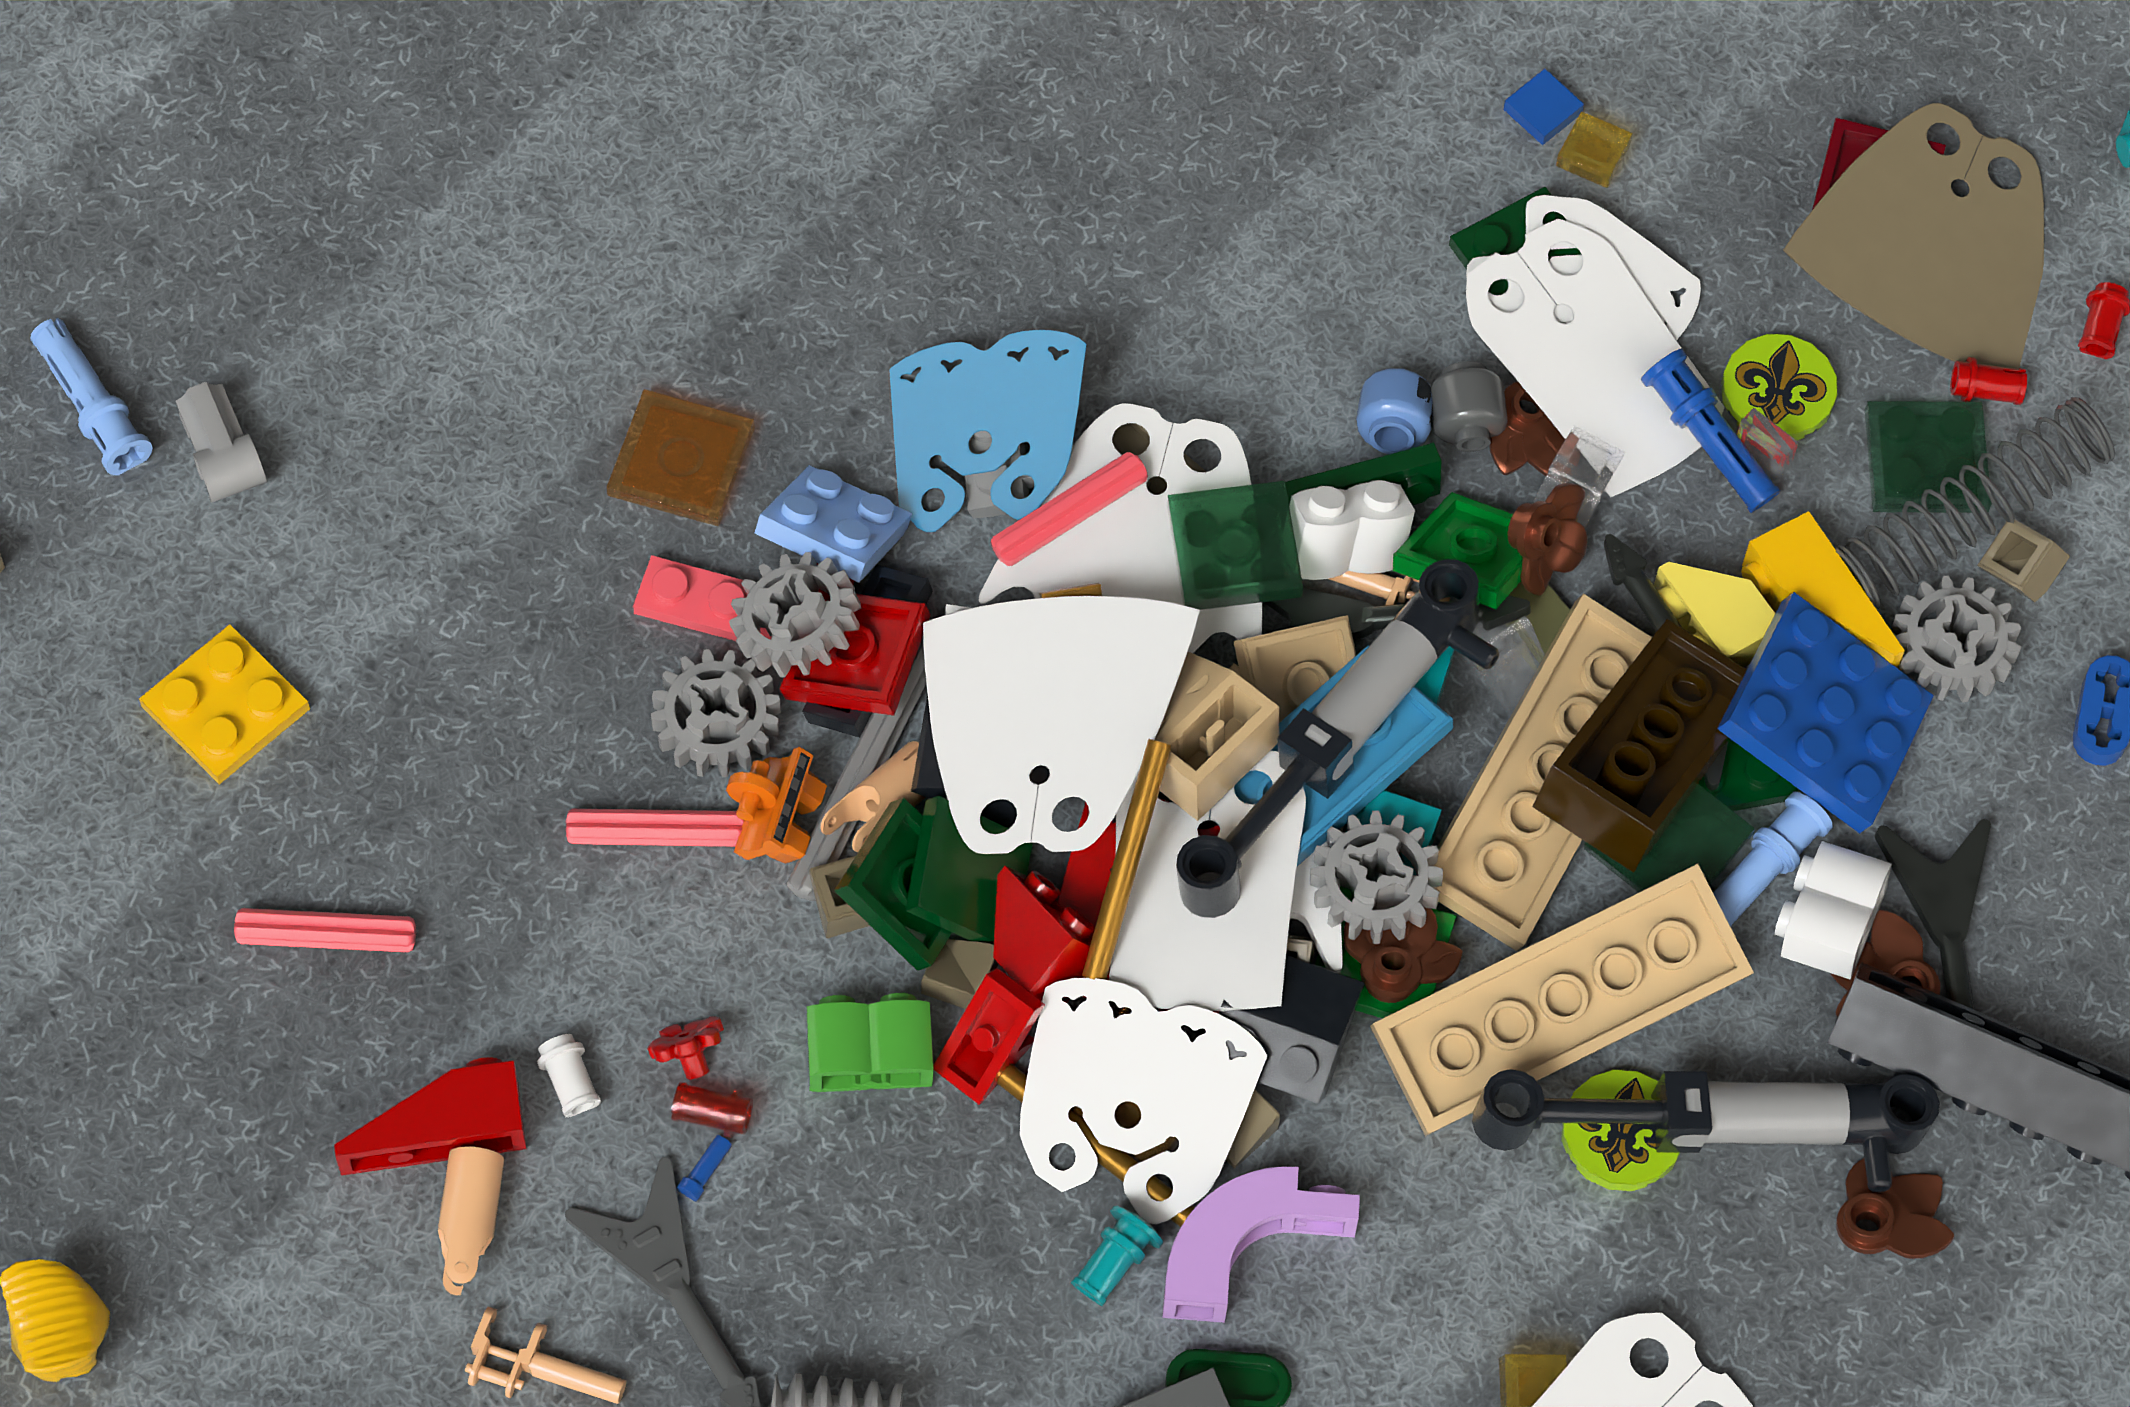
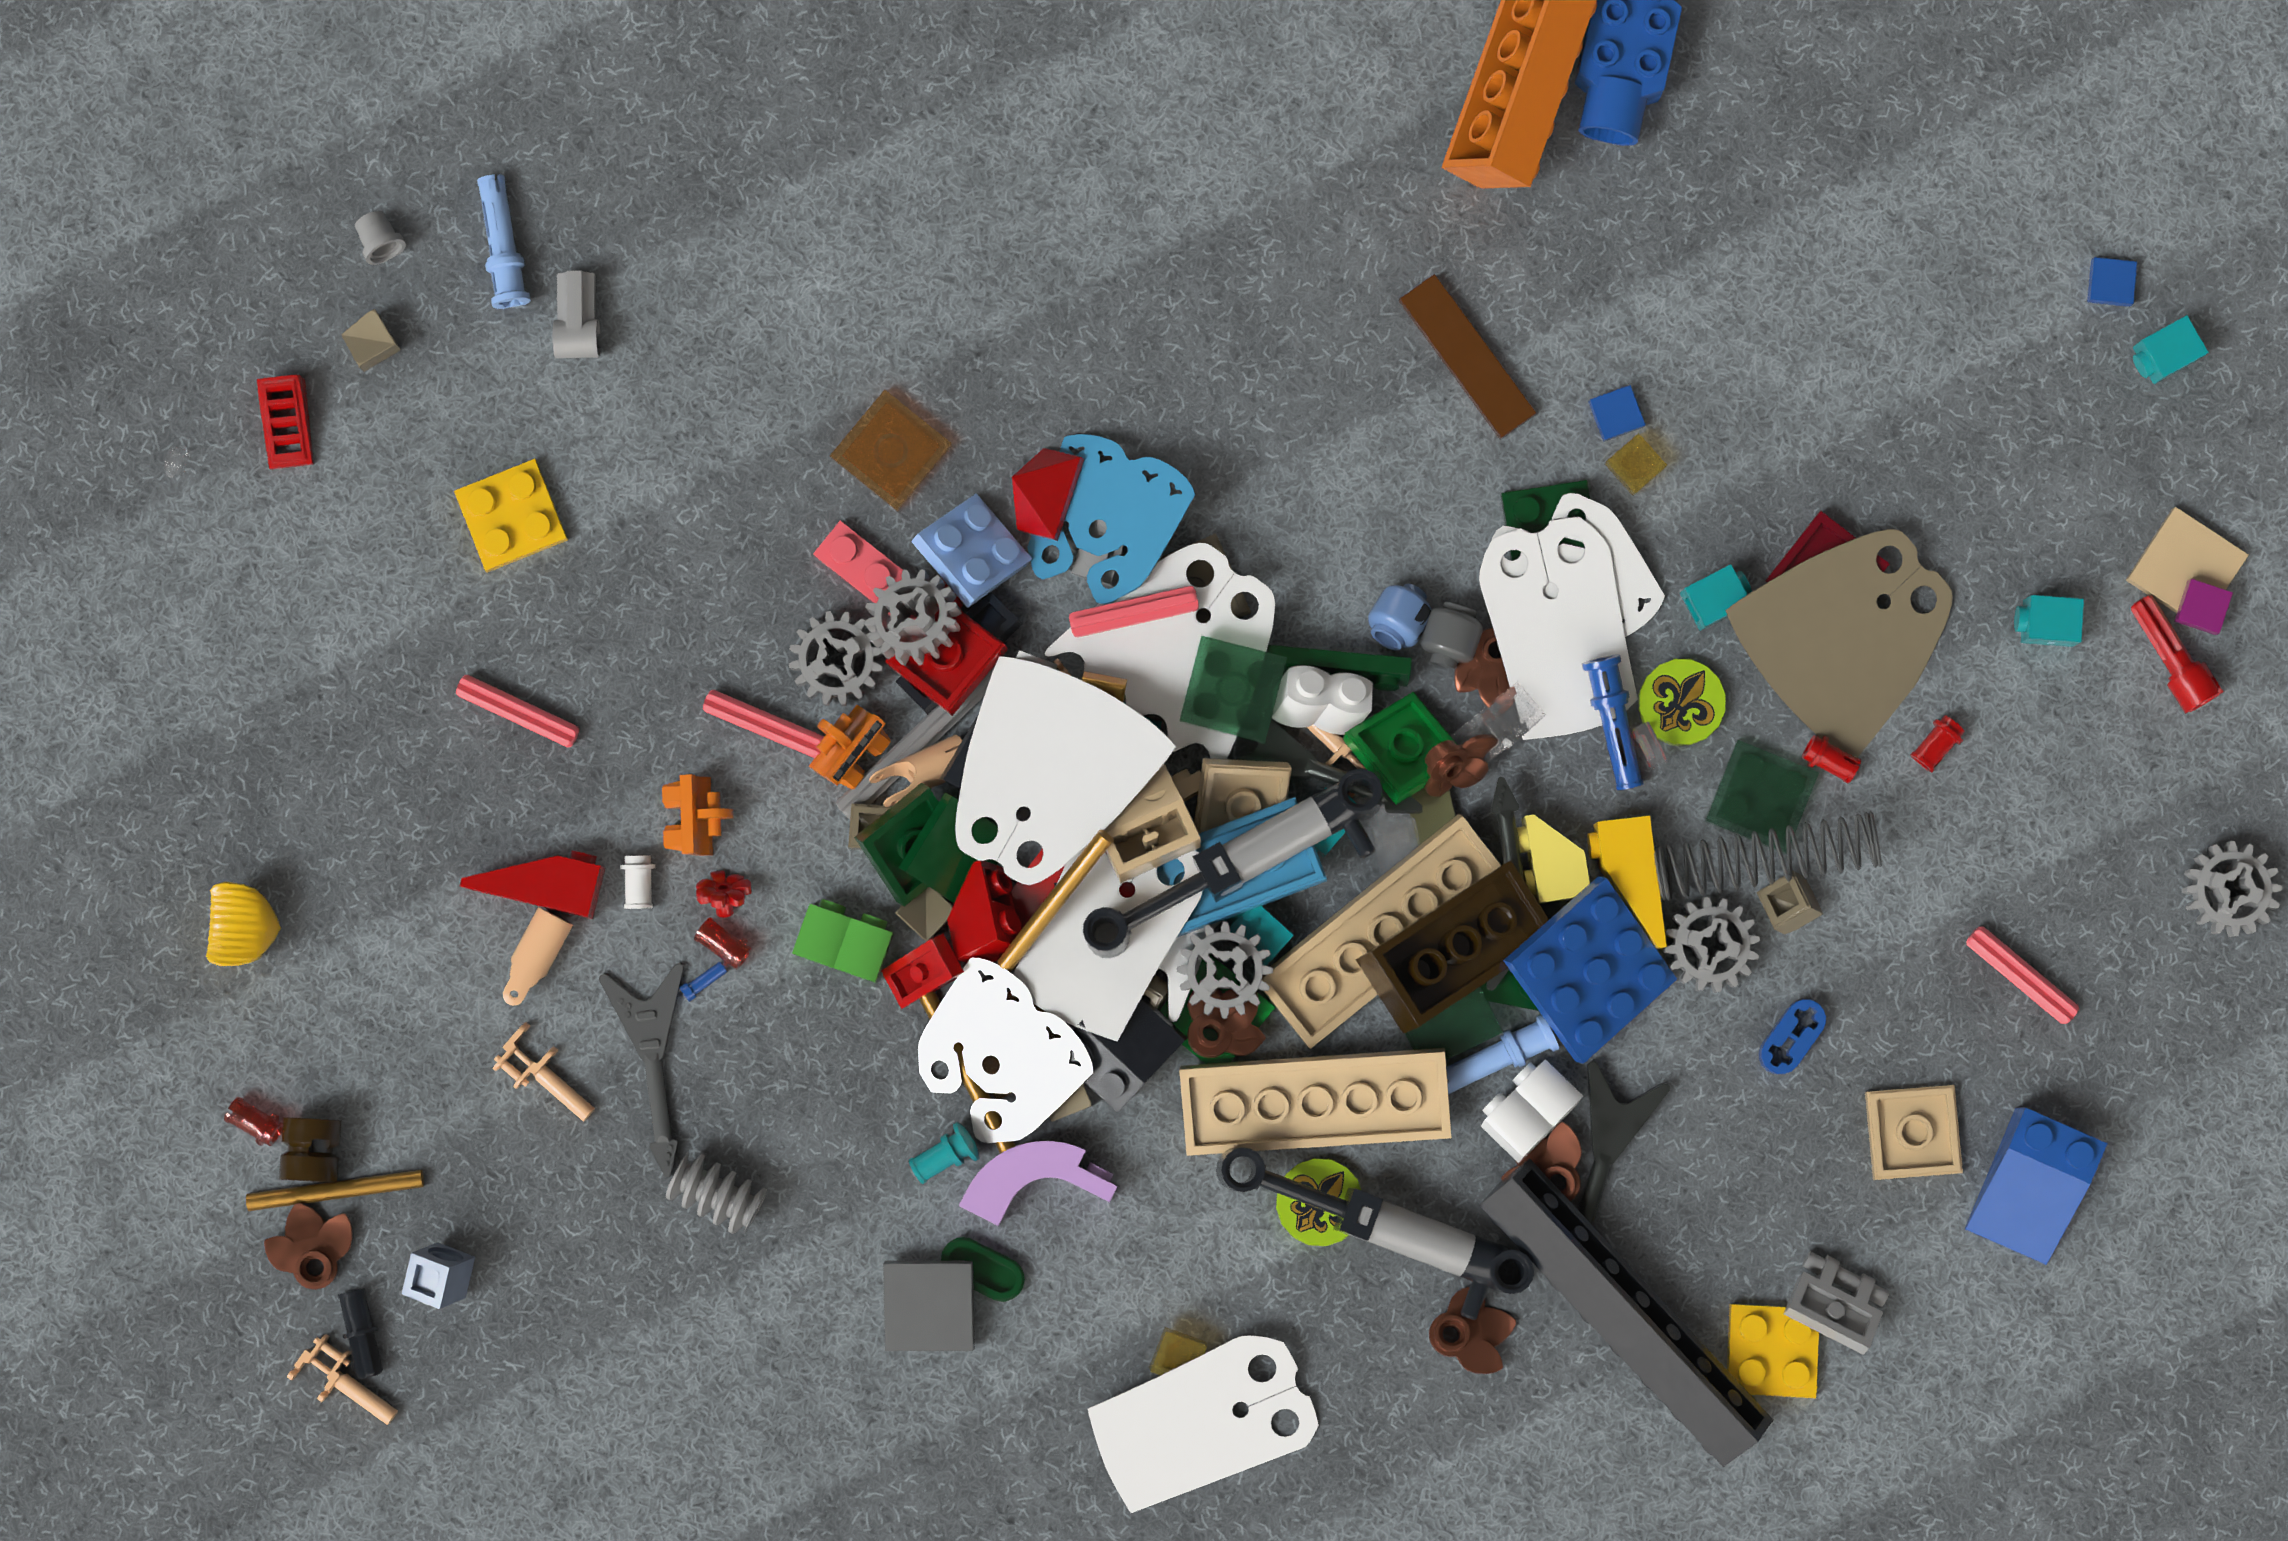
camera: 25 degrees right, 20 degrees up
(599, 945) = (699, 815): none -> orange hips
(896, 434) = (1044, 492): none -> red slope
(1337, 109) = (1467, 357): none -> reddish brown tile
(1755, 255) = (1714, 594): none -> teal brick

